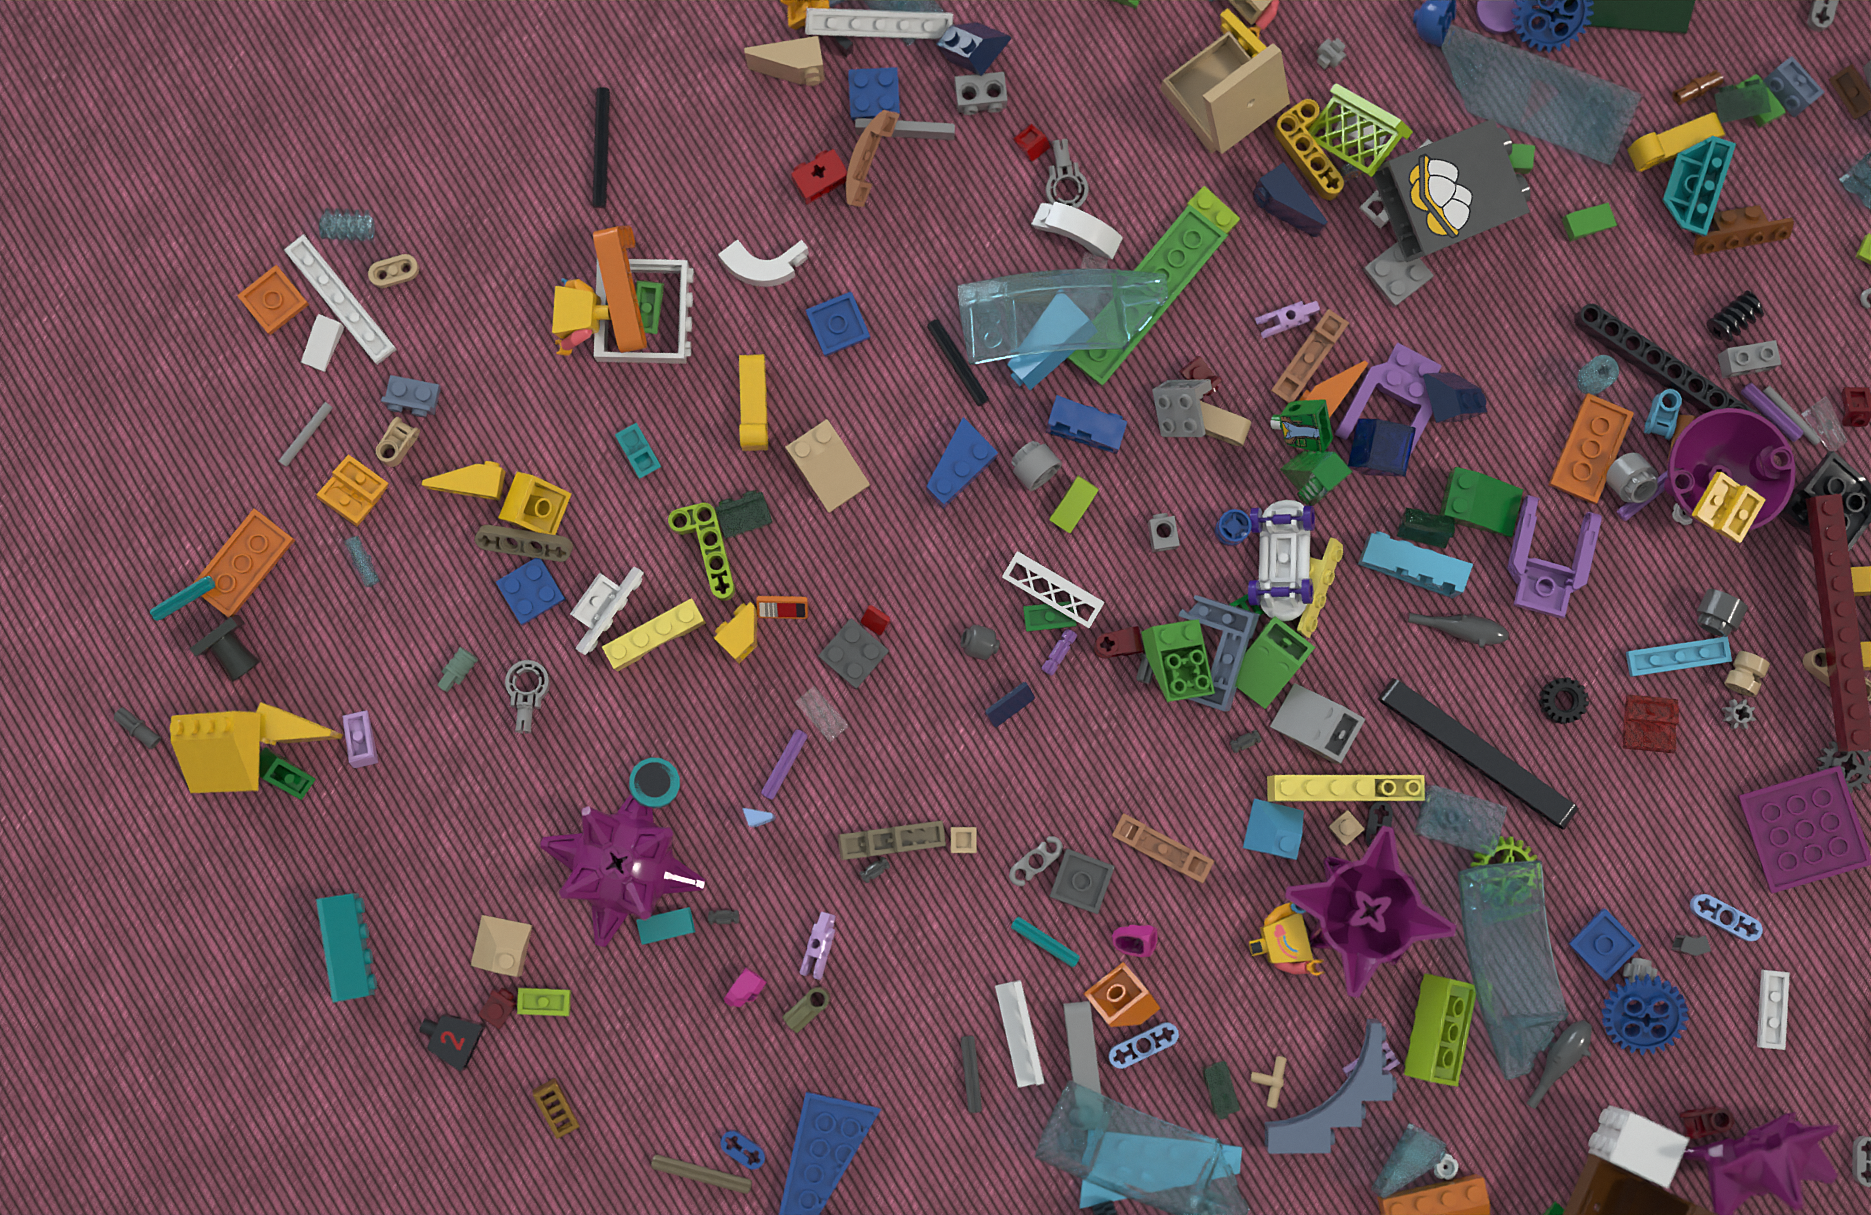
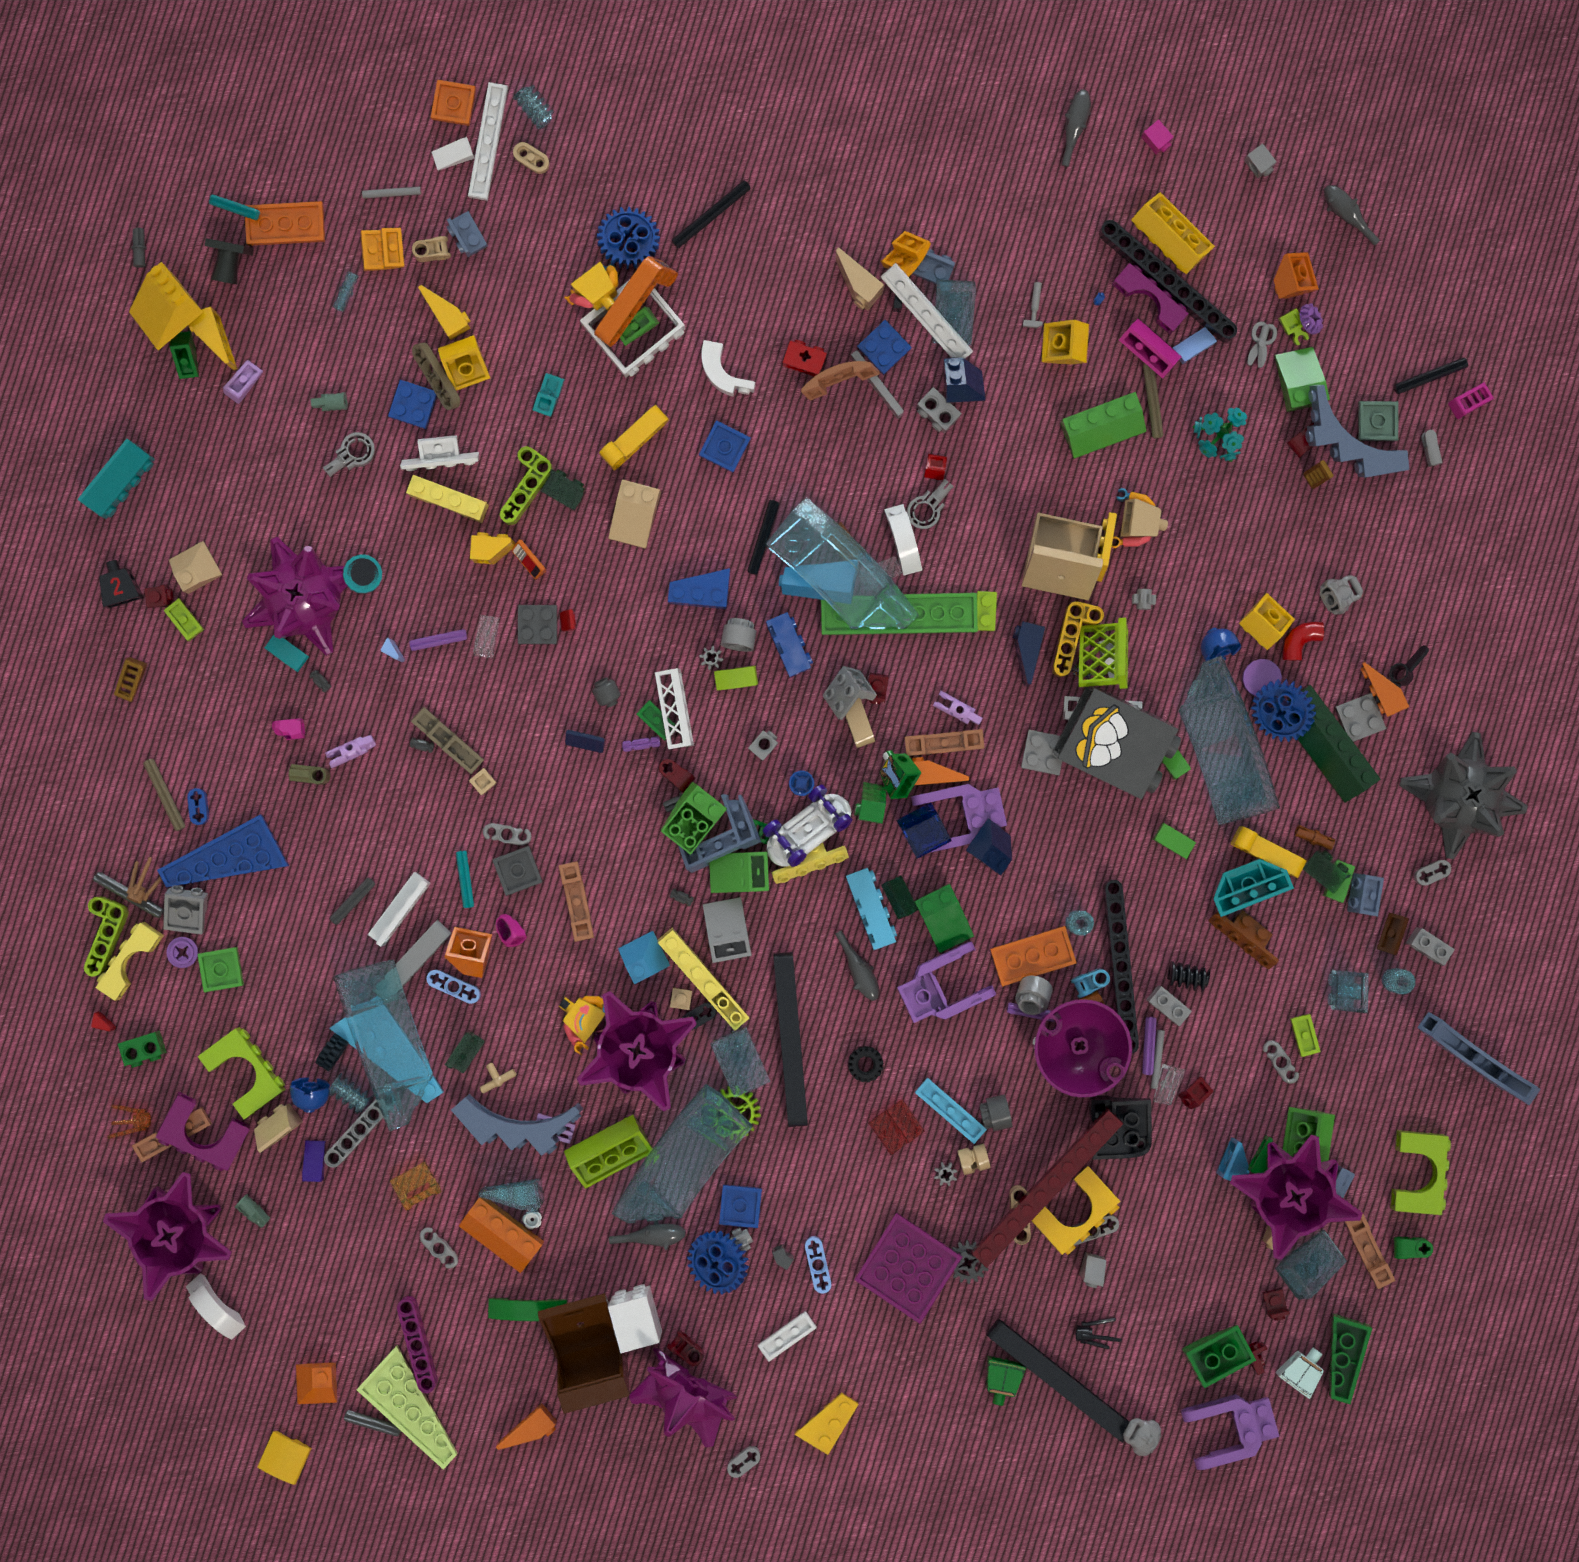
camera: 55 degrees right, 5 degrees up
(531, 250) = (612, 229): none -> blue gear
(1039, 507) = (712, 652): none -> light grey gear
(1728, 507) = (1057, 1064): yellow slope -> none

